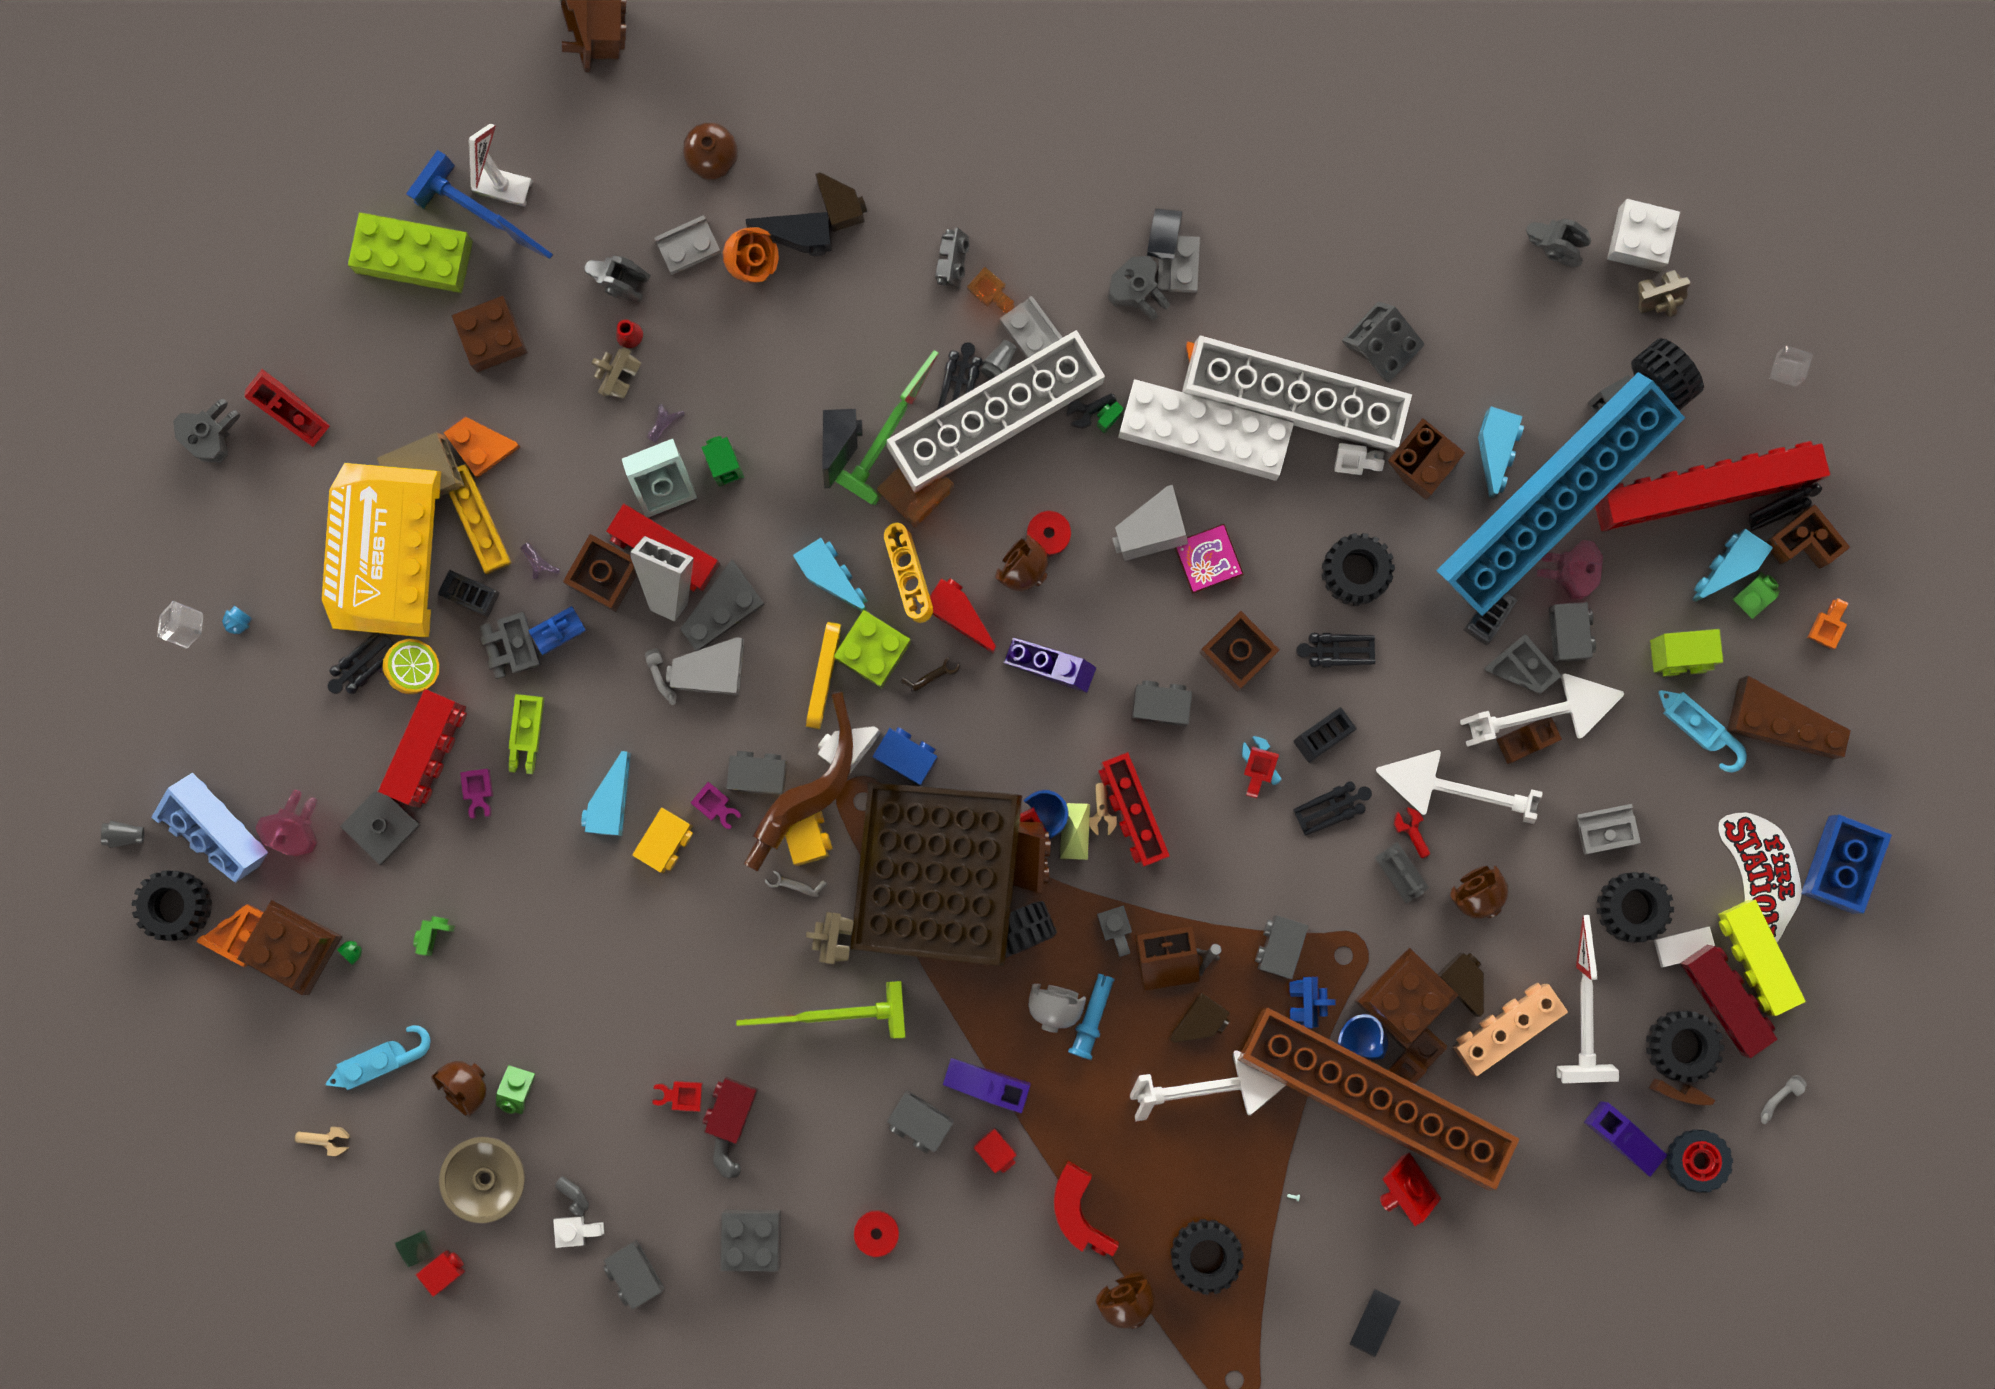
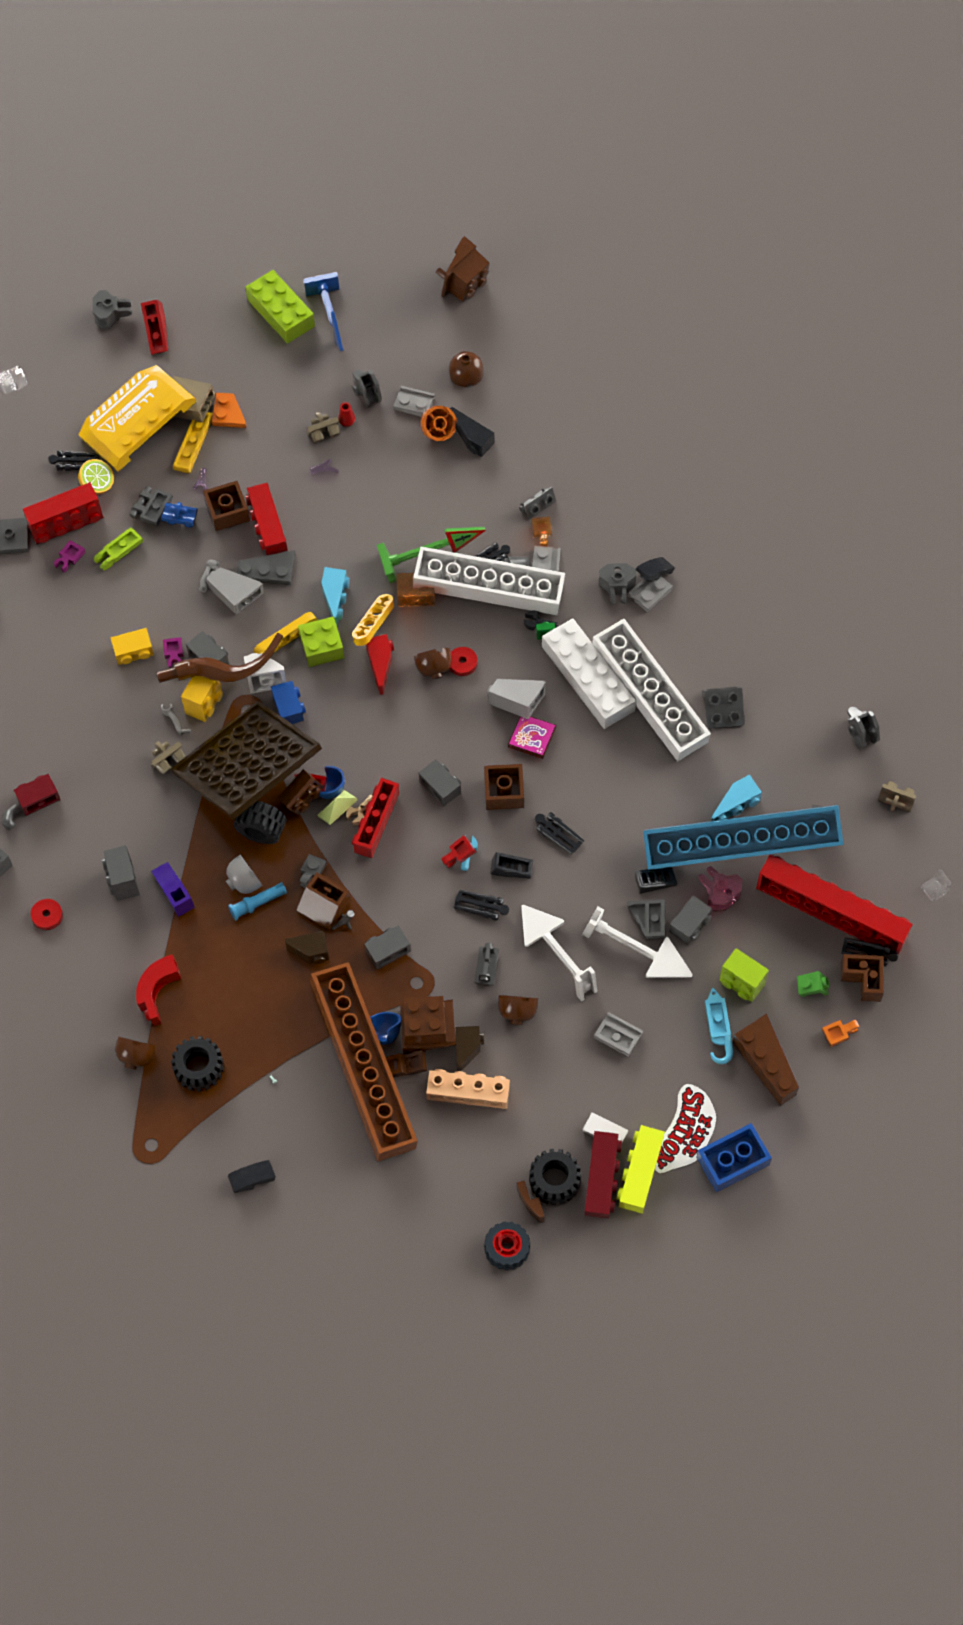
camera: 45 degrees right, 20 degrees down
(236, 620) = (38, 397): dark azure plate -> none
(487, 178) = (347, 265): white piece -> none
(487, 603) = (159, 479): black slope -> none
(489, 334) = (280, 366): reddish brown brick -> none
(607, 805) = (126, 608): medium azure slope -> none
(659, 478) = (296, 488): light aqua slope -> none
(663, 576) = (252, 526): light grey slope -> none
(684, 1095) = (20, 769): red plate -> none
(722, 460) = (333, 500): green brick -> none
(839, 441) = (396, 534): black slope -> none
(840, 202) = (505, 437): dark brown slope -> none
(888, 1010) = (161, 813): lime piece -> none
(930, 676) = (340, 680): dark brown piece -> none
(996, 1151) = (144, 922): red brick -> none
(1050, 664) = (403, 720): dark purple slope -> none
(1254, 1085) = (306, 1001): white piece -> none
(1309, 990) = (376, 987): blue hips -> none
(1354, 458) = (653, 746): white plate -> none
(1374, 553) = (604, 784): black tyre -> none
(1409, 1190) = (335, 1120): red tile -> none
(1413, 831) = (512, 950): red bar -> none
(1425, 458) = (691, 774): reddish brown slope -> none
(1528, 739) = (617, 956): reddish brown slope -> none
(1587, 1069) = (491, 1144): white piece -> none
(1625, 1137) = (477, 1197): dark purple slope -> none
(1643, 235) = (911, 760): white brick -> none
(1658, 907) = (597, 1067): black tyre -> none
(1670, 370) = (859, 831): black tyre -> none
(1742, 557) = (815, 958): medium azure slope -> none
(1794, 1084) = (599, 1254): light grey piece -> none

